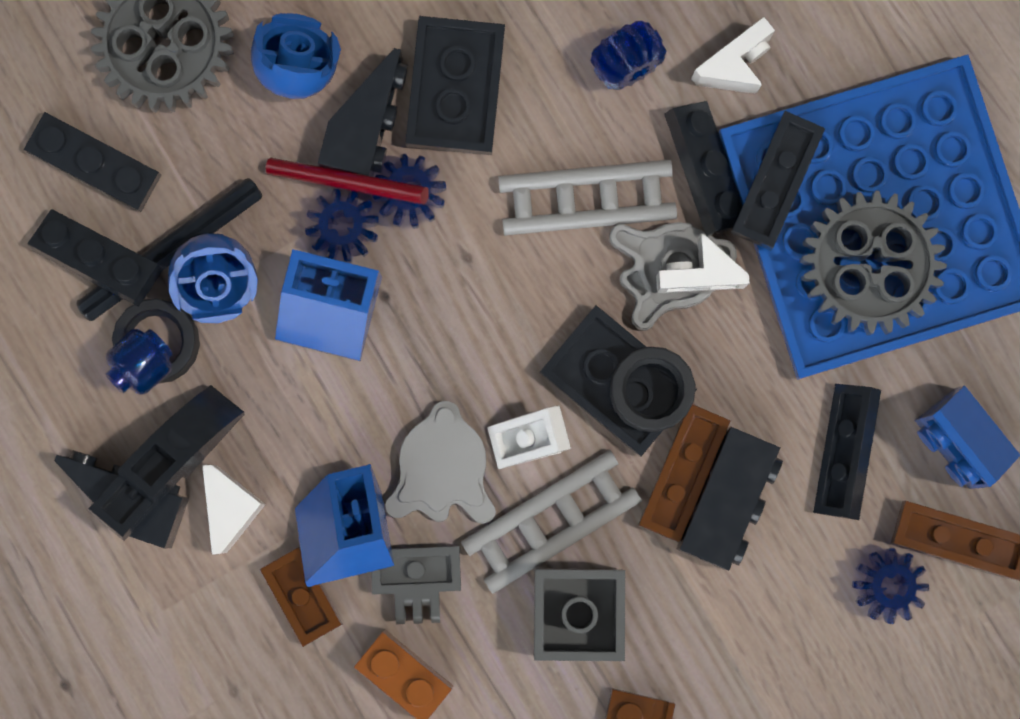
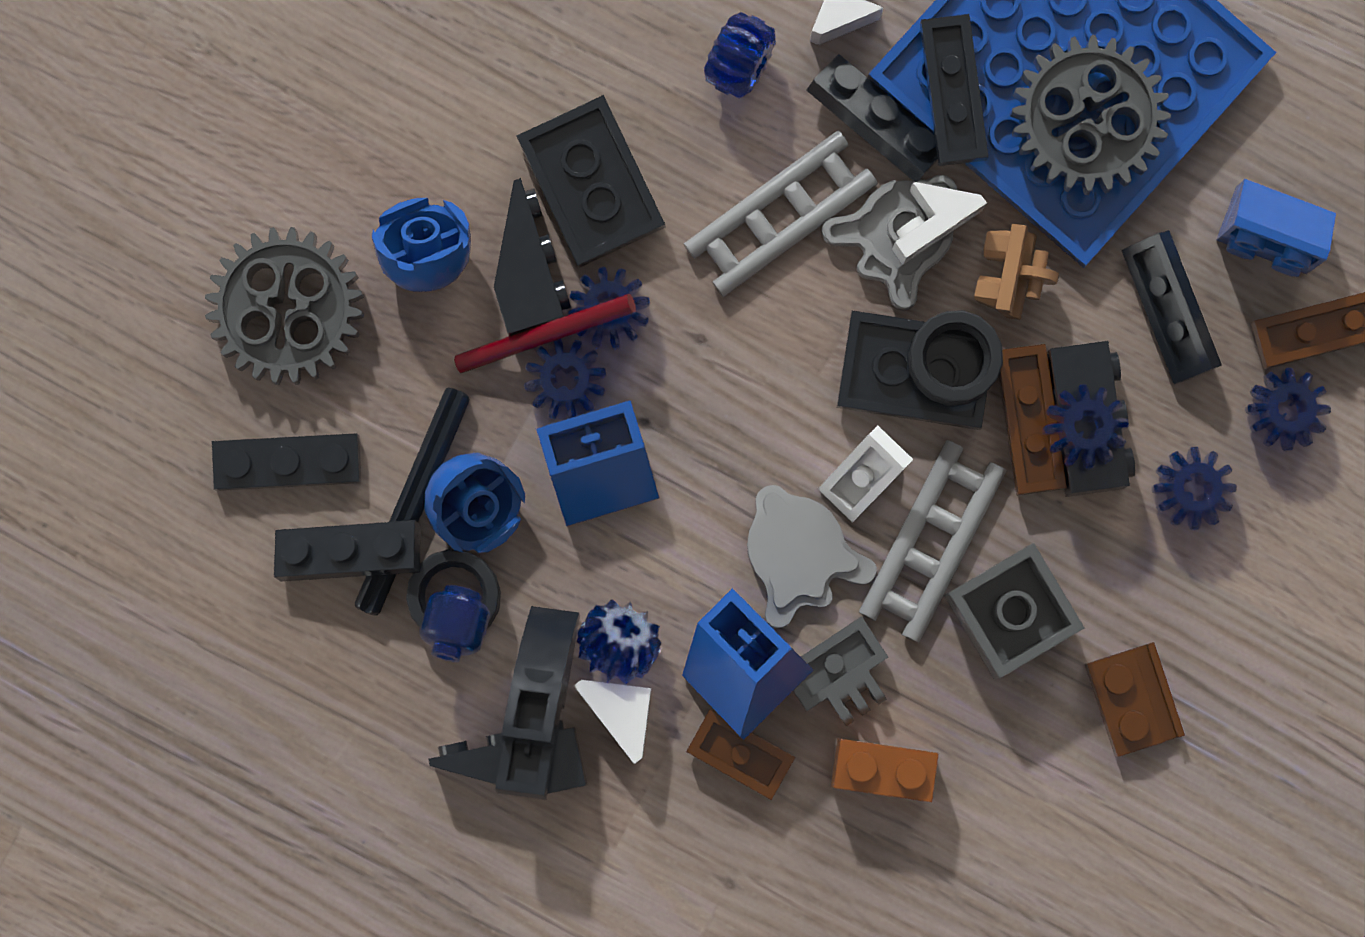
camera: 30 degrees left, 0 degrees up
(258, 452) = (618, 641): none -> clear blue gear
(724, 519) = (1074, 413): none -> clear blue gear
(747, 352) = (1017, 252): none -> medium nougat hips
(793, 598) = (1205, 476): none -> clear blue gear

